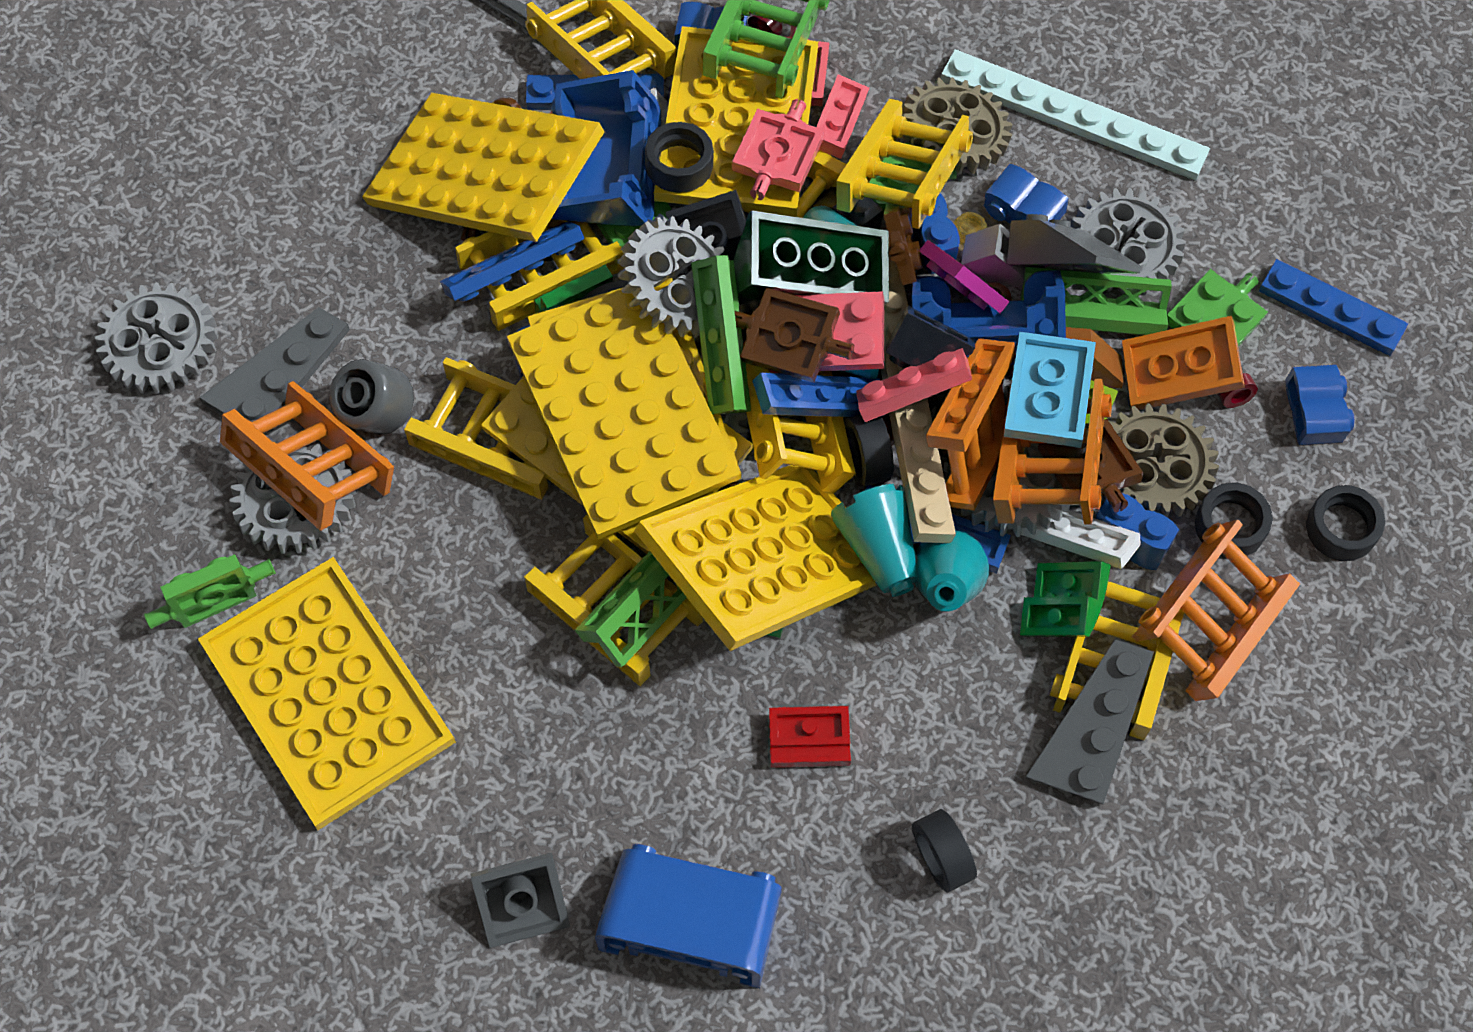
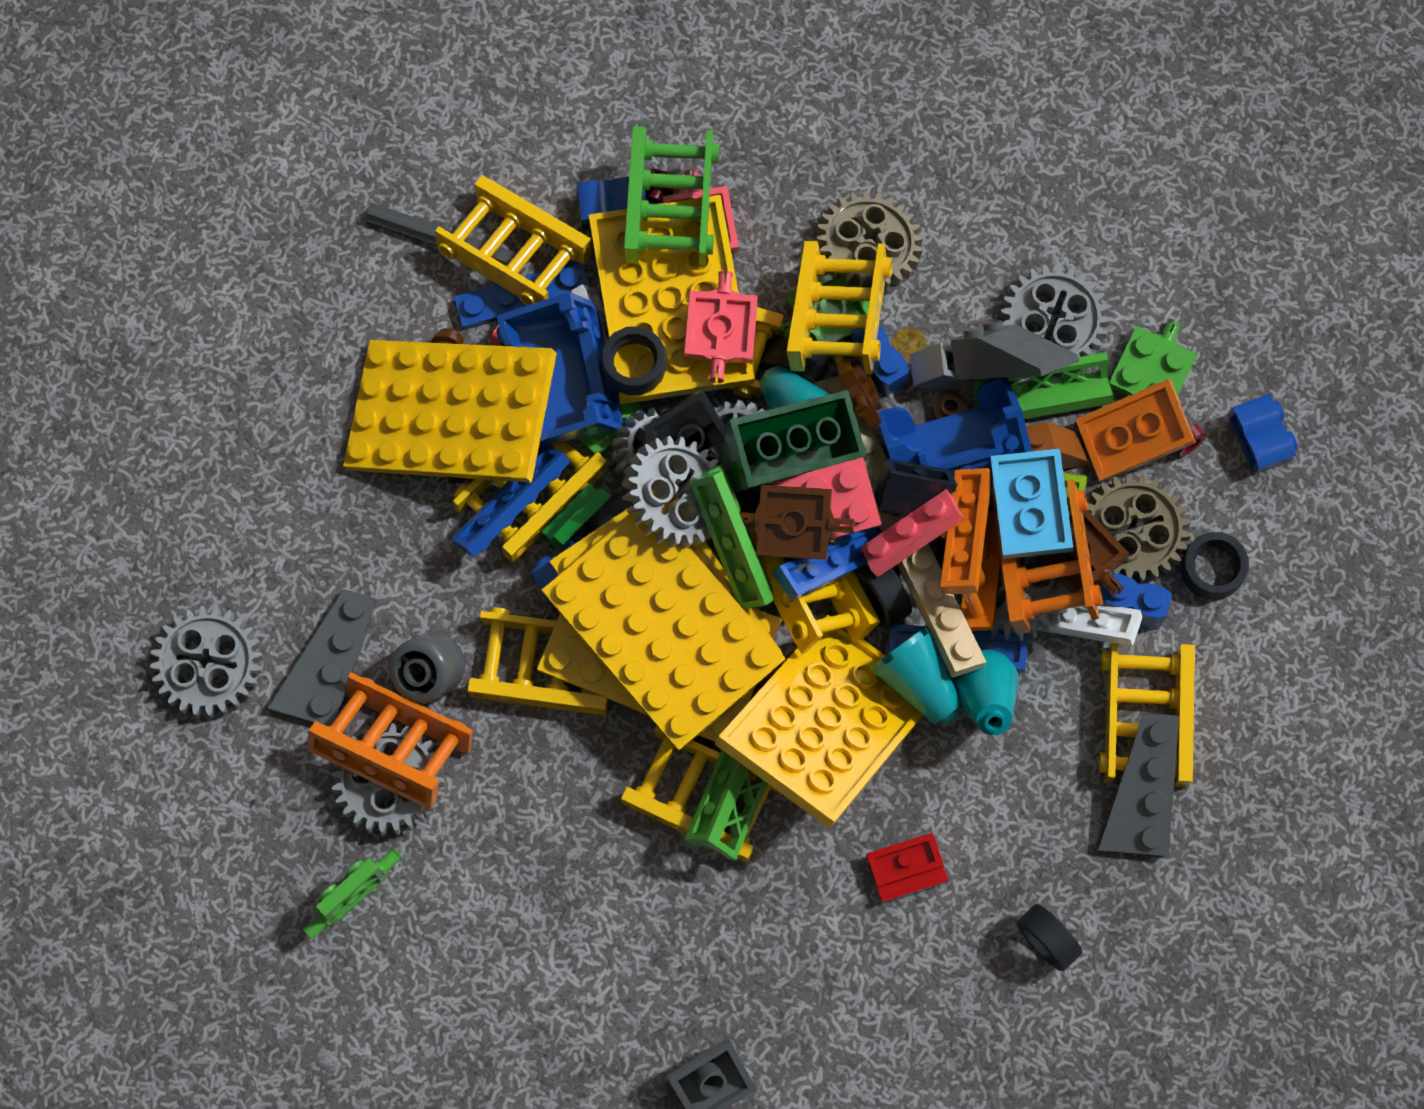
camera: 15 degrees left, 10 degrees up
(326, 692) = (481, 947): yellow plate -> none
(690, 913) = (855, 1052): blue windscreen -> none
(841, 114) = (760, 261): coral plate -> none
(962, 278) = (921, 405): dark pink plate -> none
(1020, 193) = (952, 303): blue brick -> none
(1065, 599) = (1090, 685): green slope -> none
(1078, 115) = (974, 196): light aqua plate -> none
(1250, 620) = (1250, 666): orange fence -> none
(1333, 307) = (1253, 331): blue plate -> none
(1361, 502) = (1320, 517): black tyre -> none

